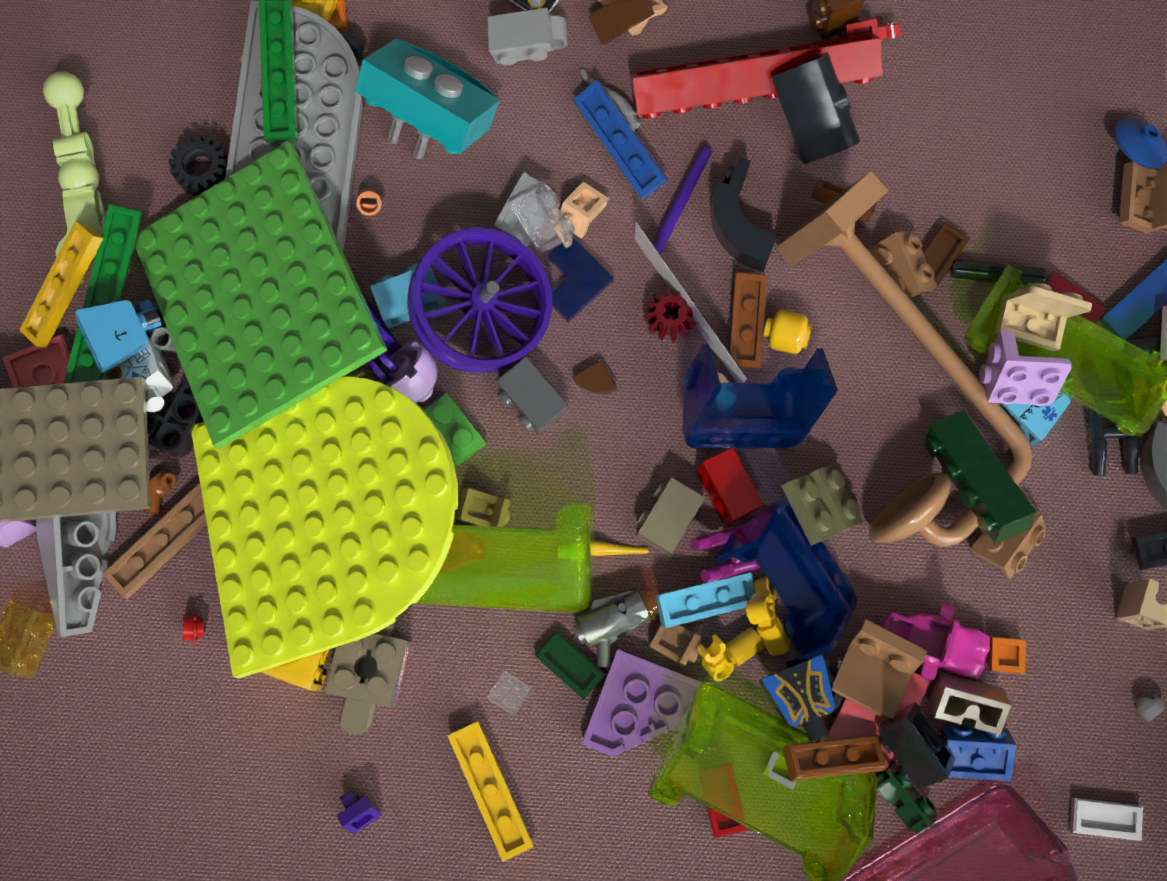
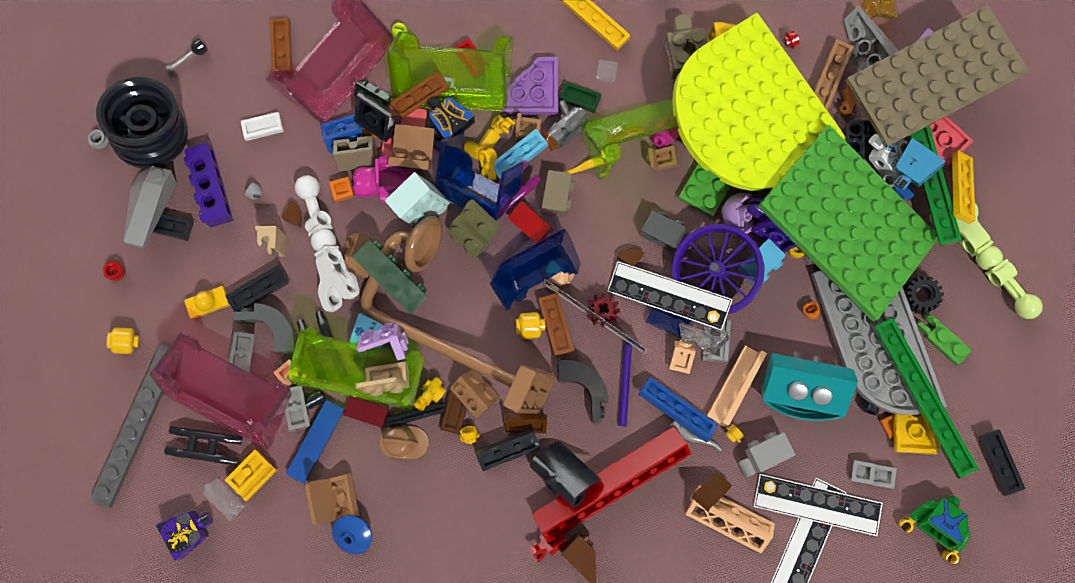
camera: 155 degrees right, 0 degrees up
(202, 95) = (944, 339): none -> bright green hinge
(523, 140) = (736, 386): none -> light nougat fence
(555, 81) = (734, 433): none -> yellow plate
(566, 295) = (670, 295): none -> sticker
(891, 173) = (507, 449): none -> black plate
(900, 568) = (417, 200): none -> light aqua brick
(930, 221) = (469, 434): none -> yellow plate
(965, 292) = (432, 391): none -> yellow plate
(1027, 242) = (404, 442): none -> medium nougat piece
(1063, 516) = (329, 260): none -> white piece
(1096, 645) = (292, 214): none -> reddish brown tile

